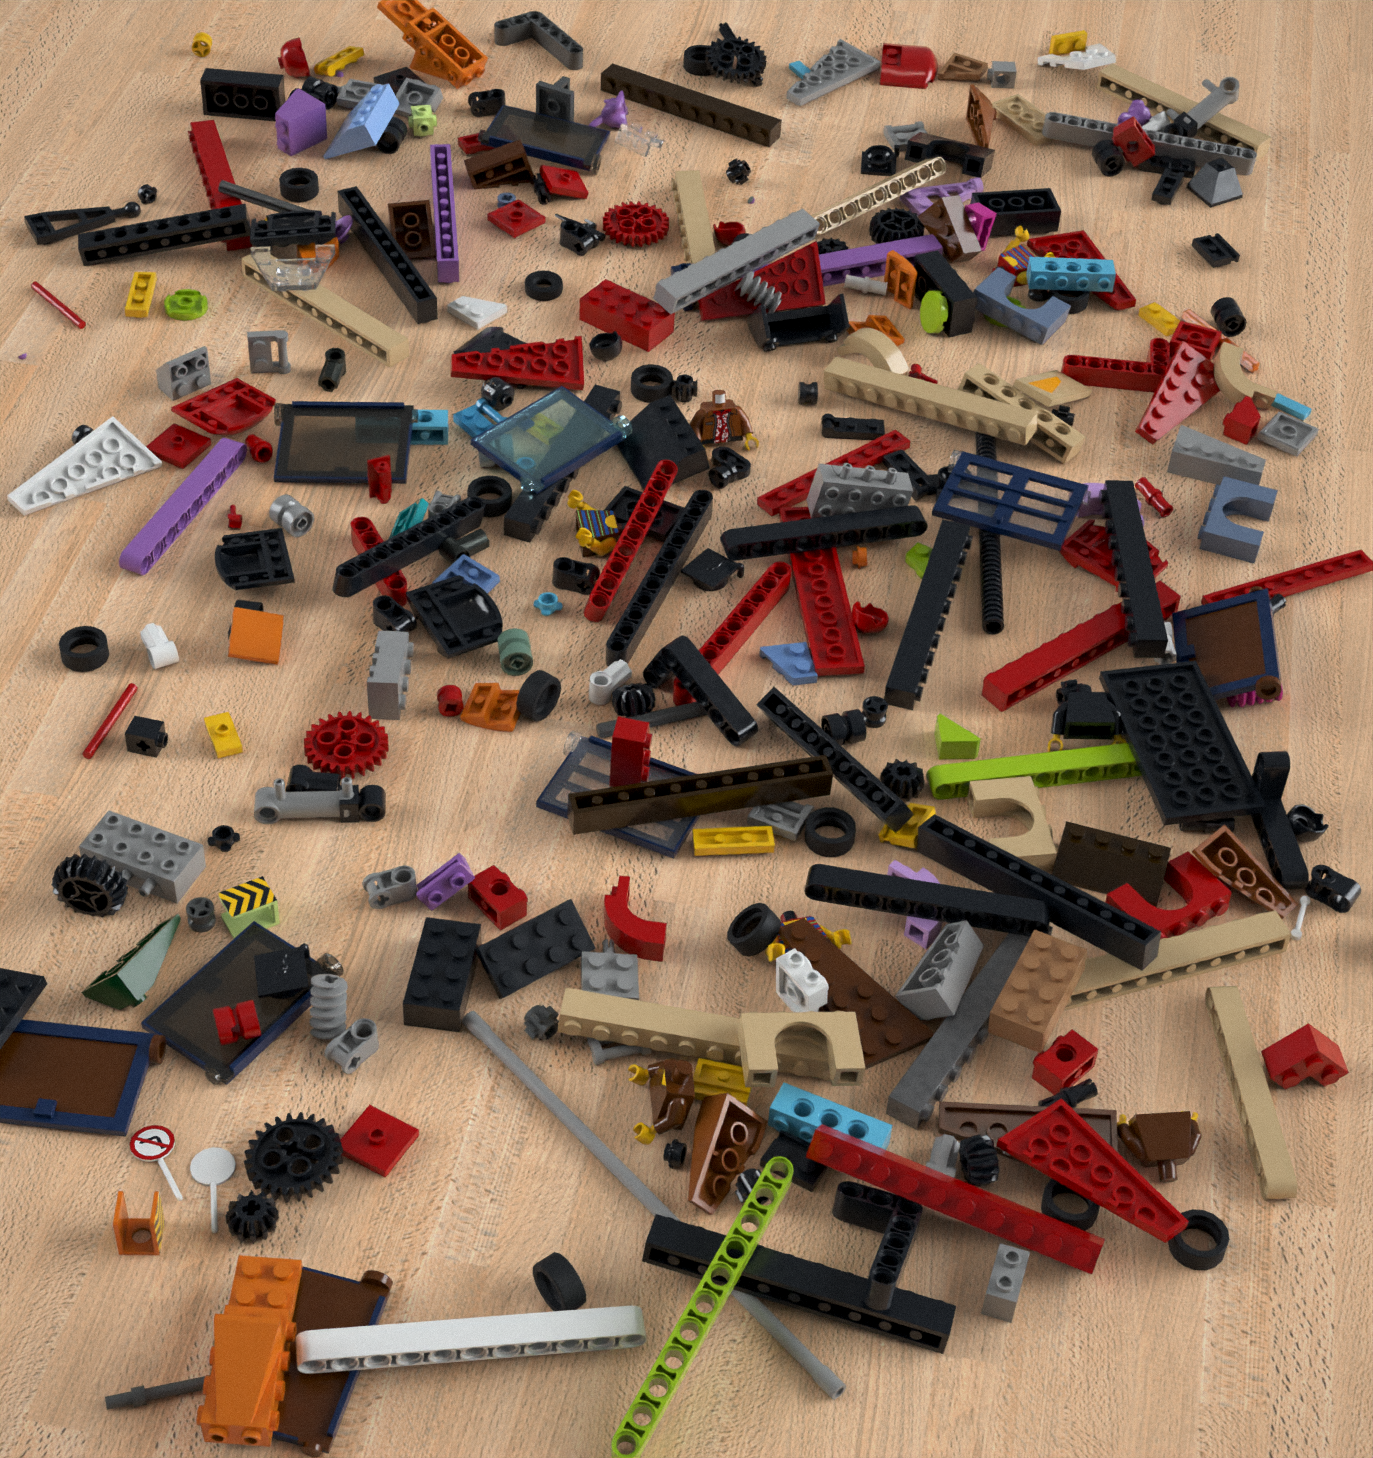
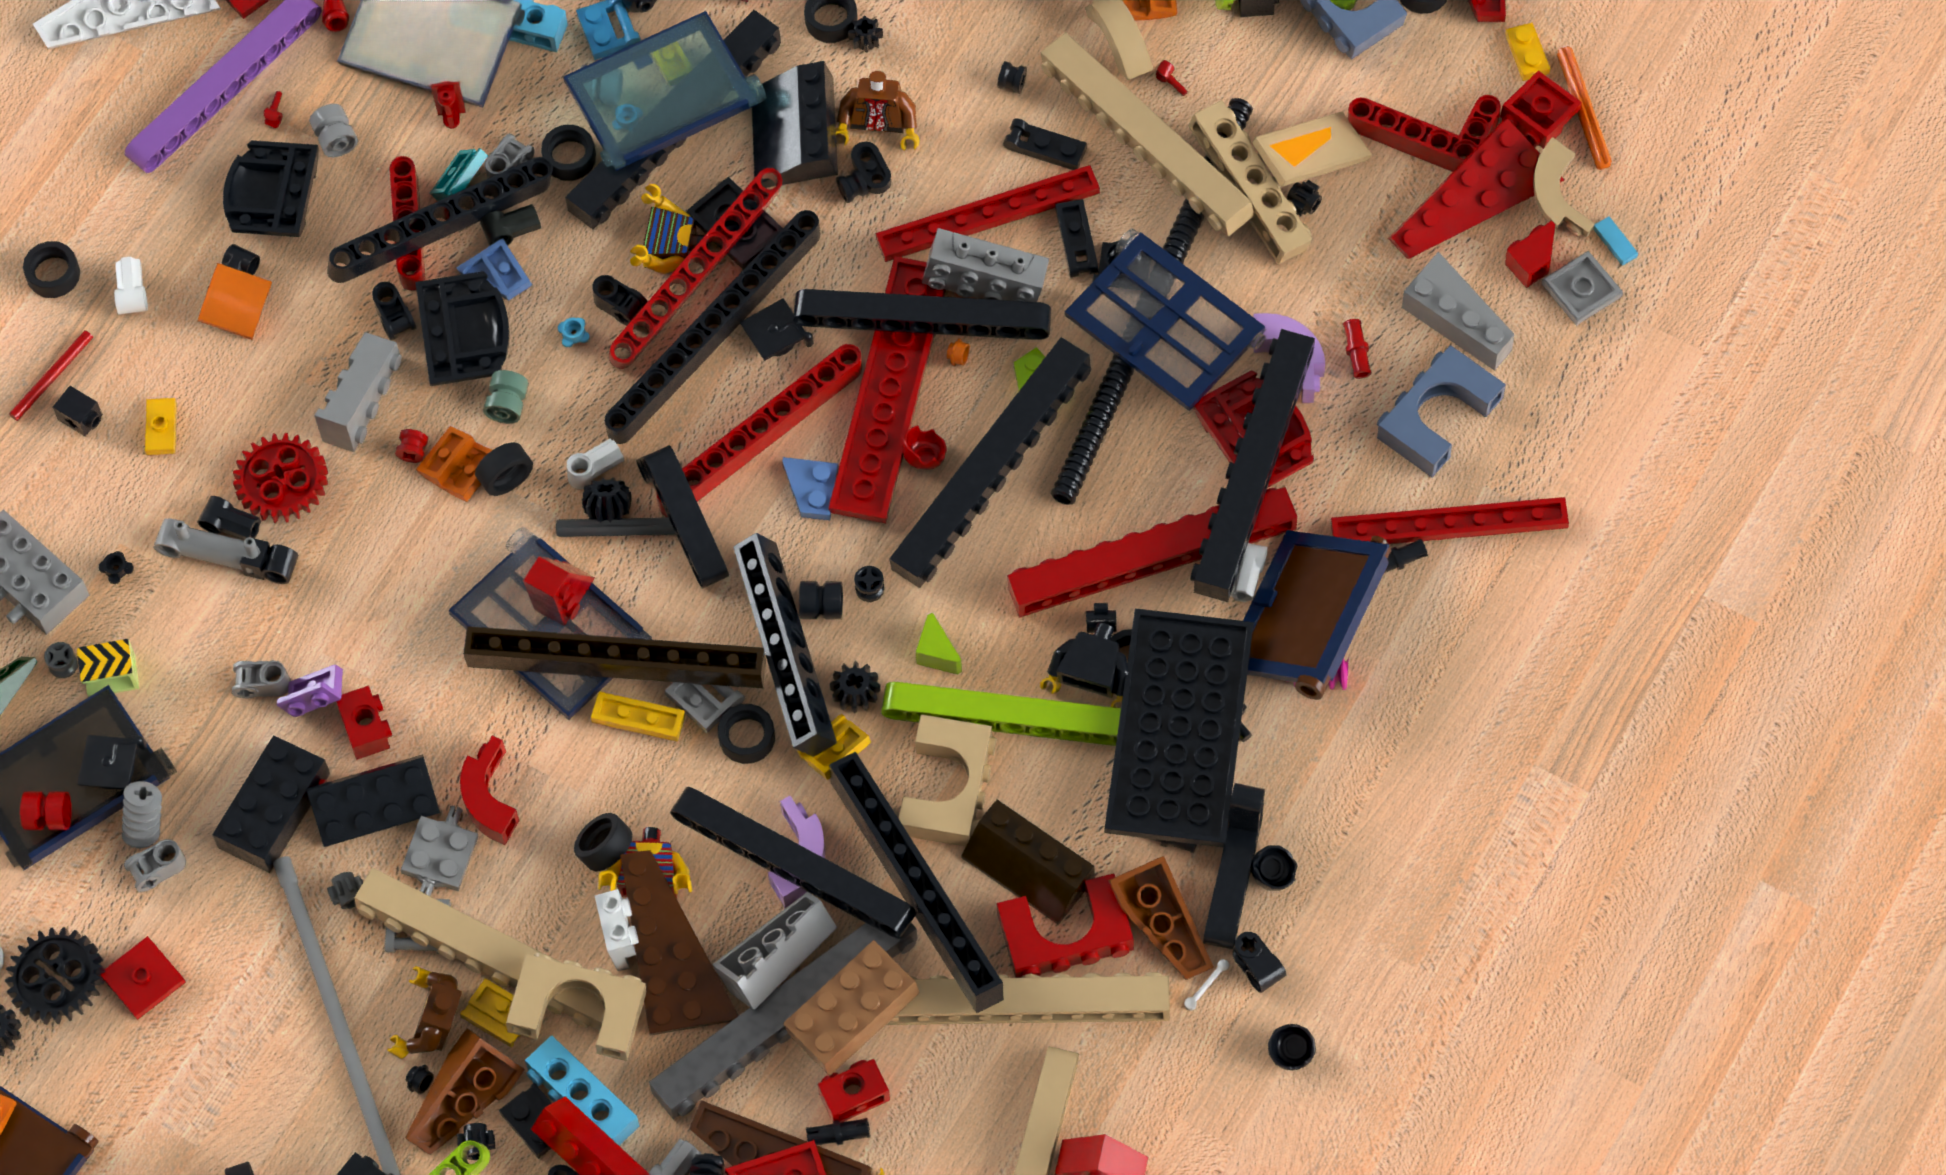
camera: 25 degrees right, 20 degrees up
(1228, 317) = (1610, 75): black wheel -> none

